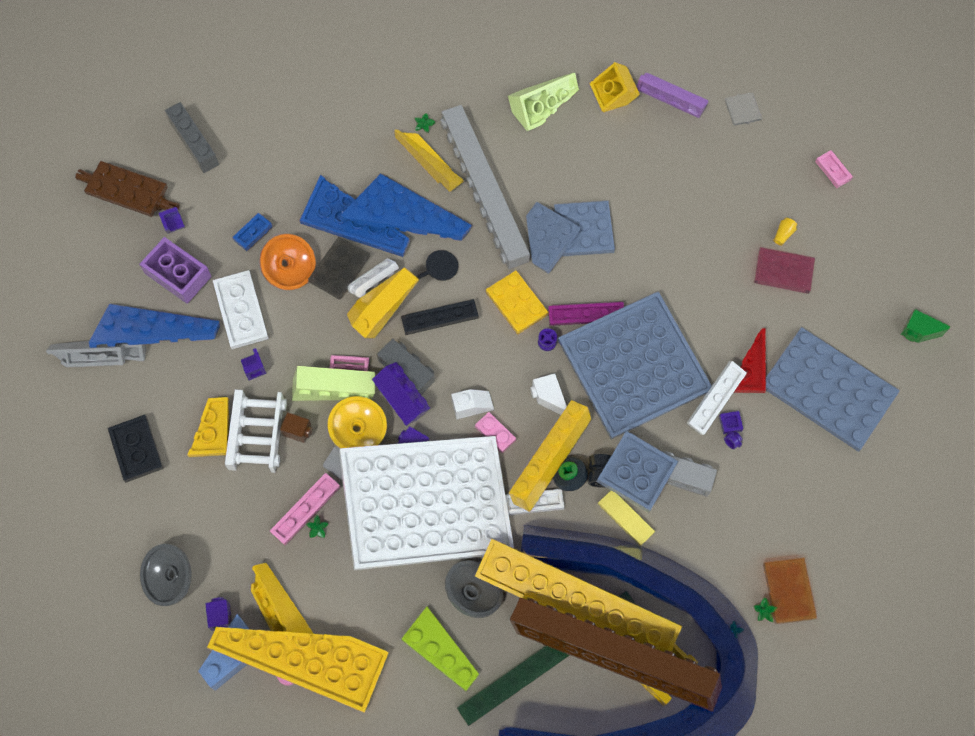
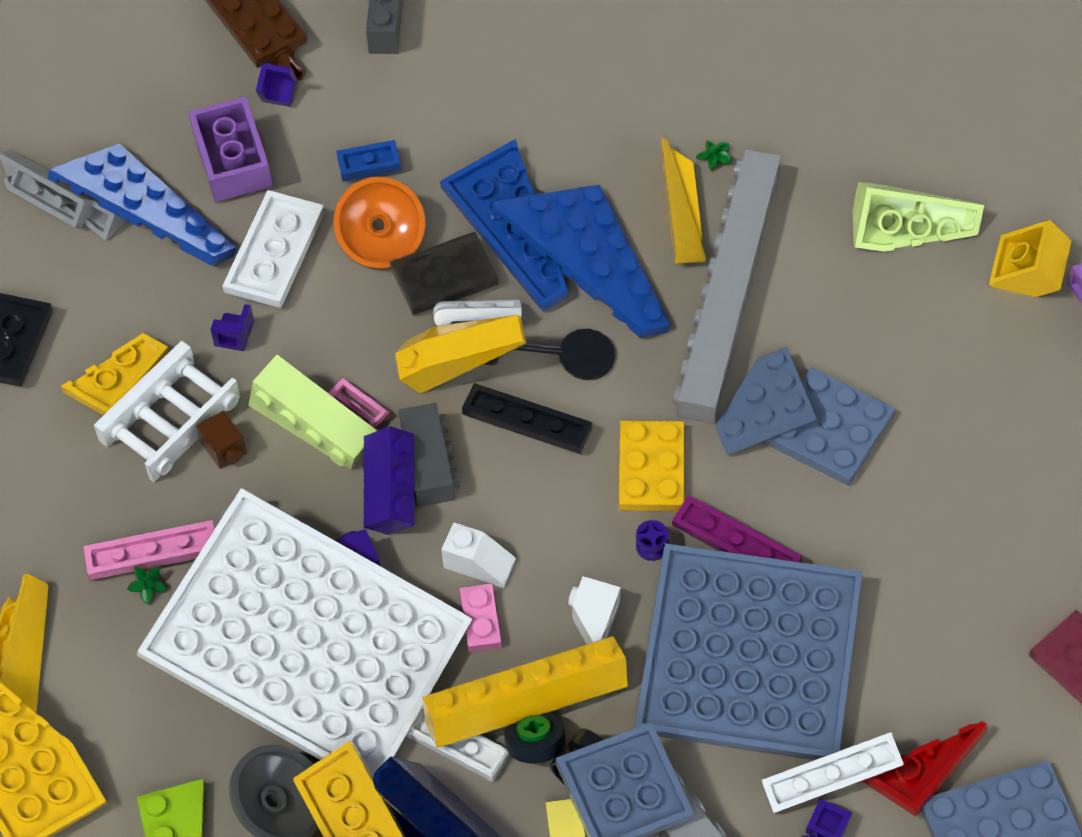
camera: 40 degrees right, 10 degrees down
(361, 413) = (306, 467): yellow dish -> none

